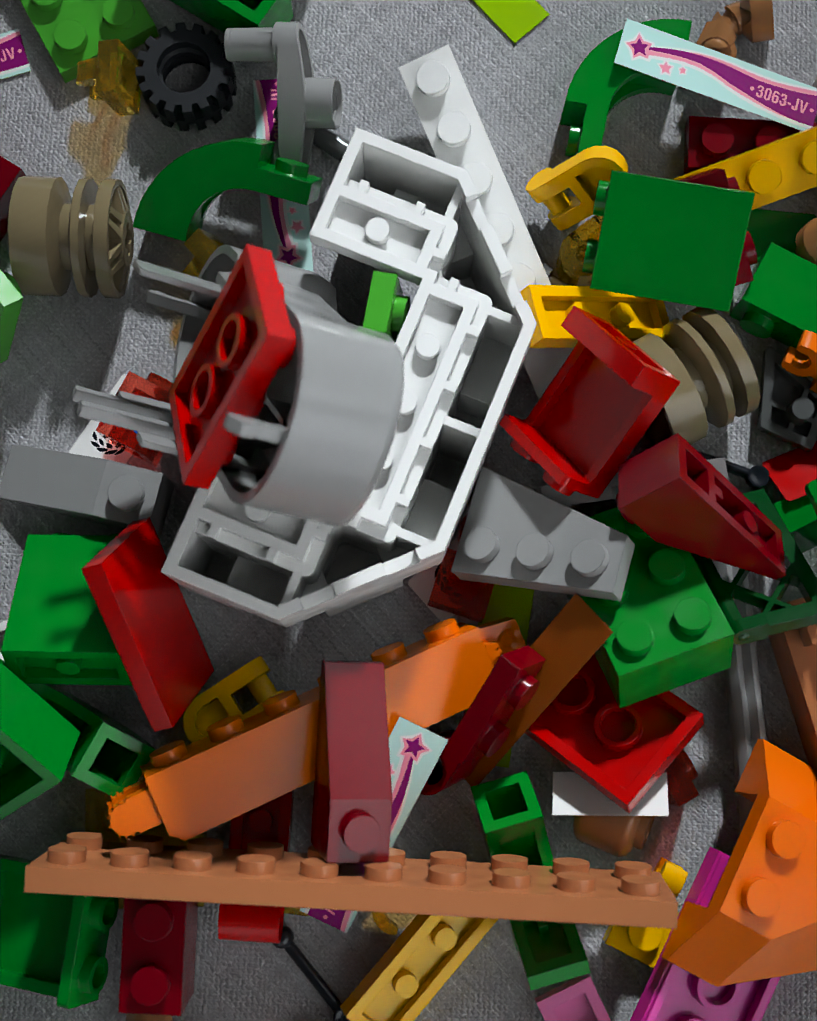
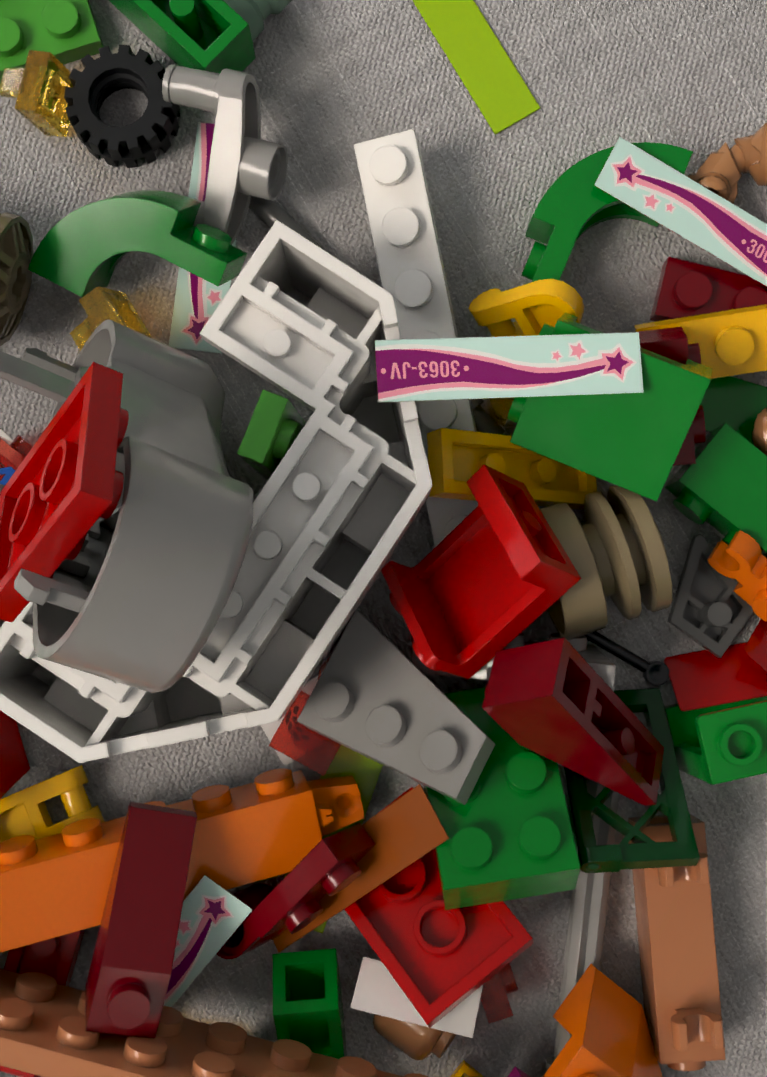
camera: 10 degrees right, 5 degrees up
(579, 213) = (508, 366): none -> sticker

